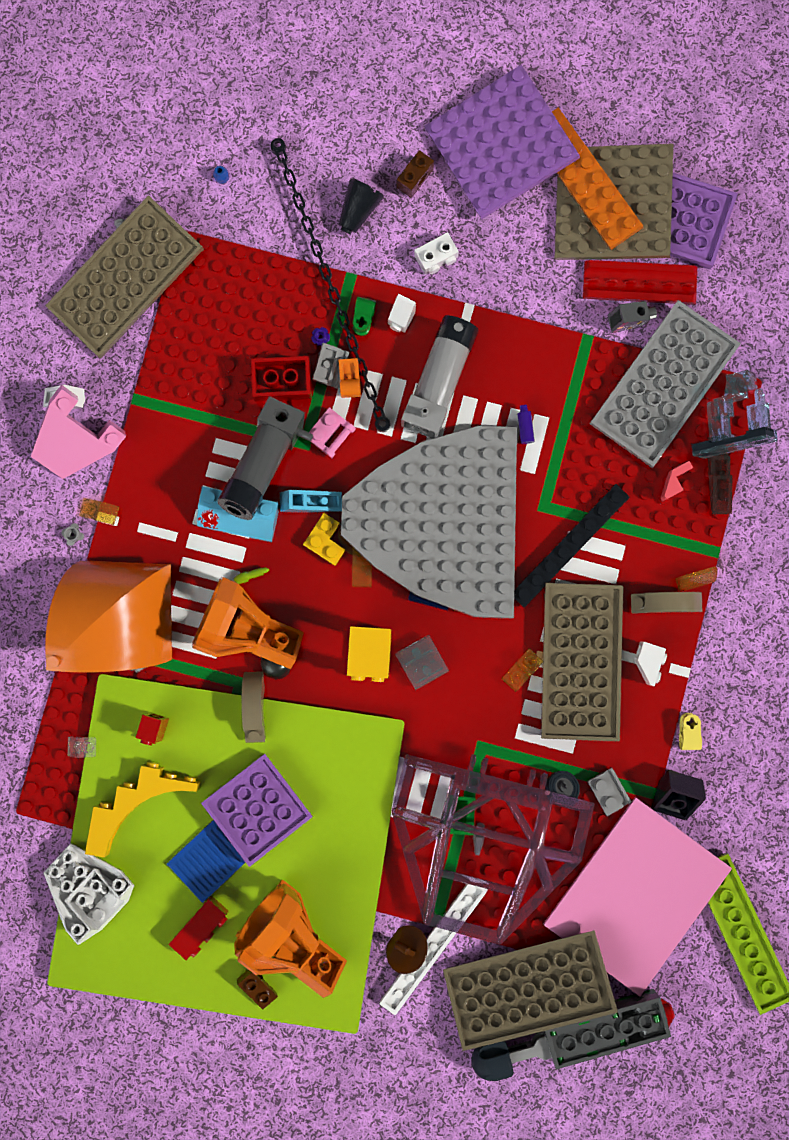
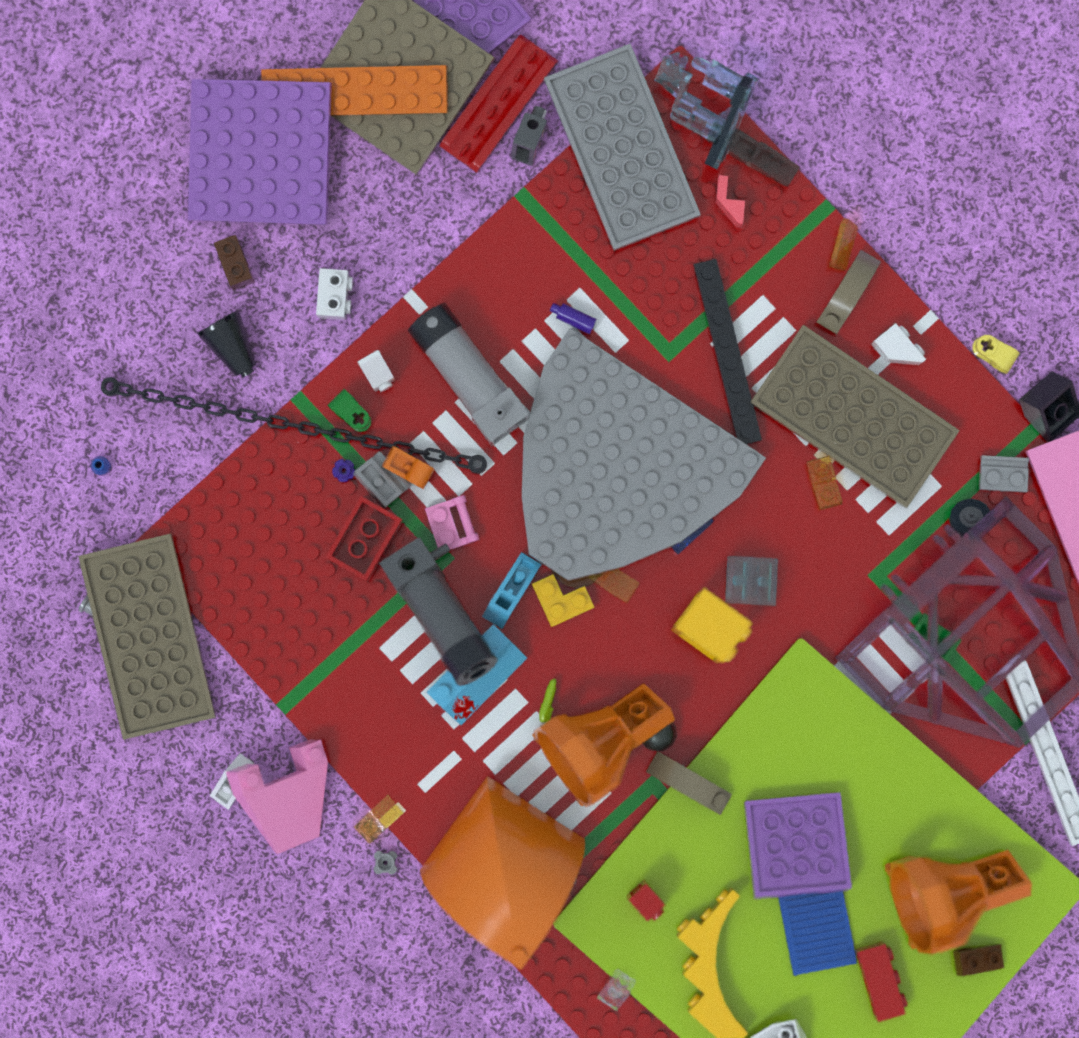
camera: 60 degrees left, 0 degrees up
(407, 949) = (1035, 782): reddish brown shield -> none
(478, 841) = (970, 639): light grey bar -> none

